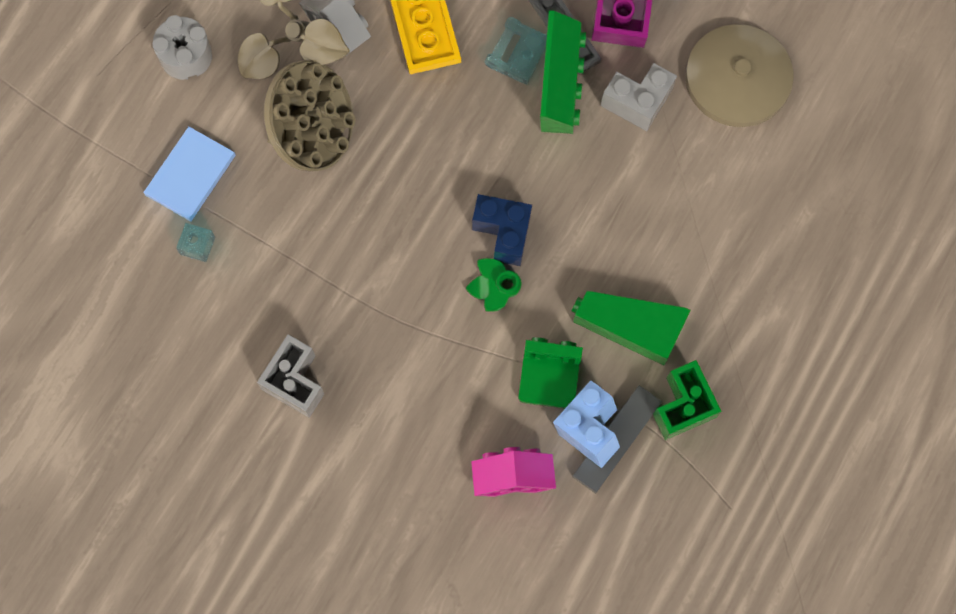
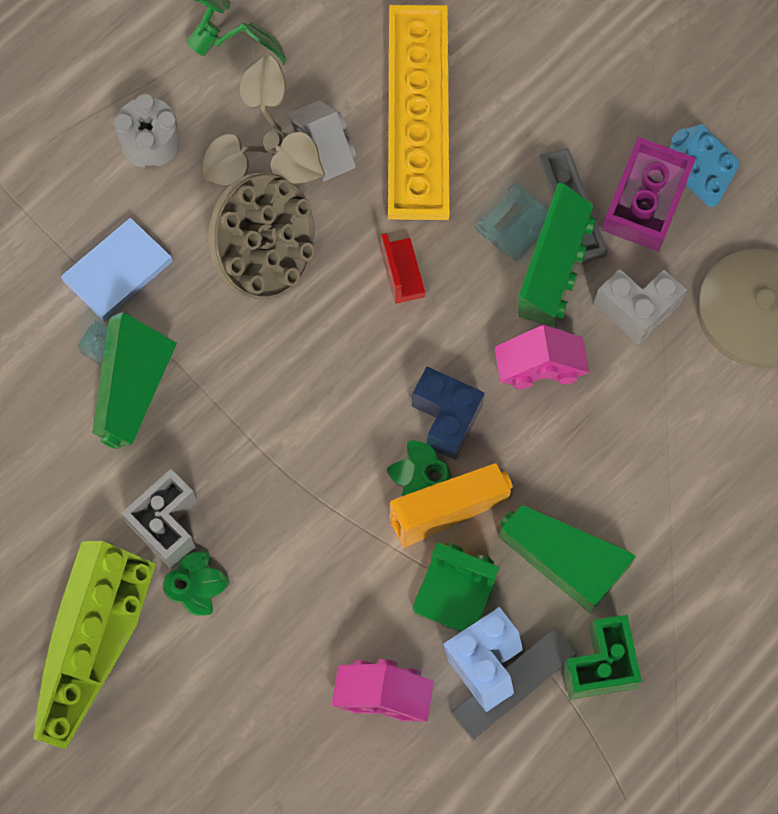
camera: 15 degrees right, 5 degrees down
(229, 266) = (129, 378): none -> green slope
(257, 489) = (89, 635): none -> lime wedge
(337, 424) = (200, 584): none -> green plate
(433, 115) = (402, 269): none -> red panel
(525, 305) = (448, 503): none -> light orange slope
(570, 161) = (541, 355): none -> dark pink brick

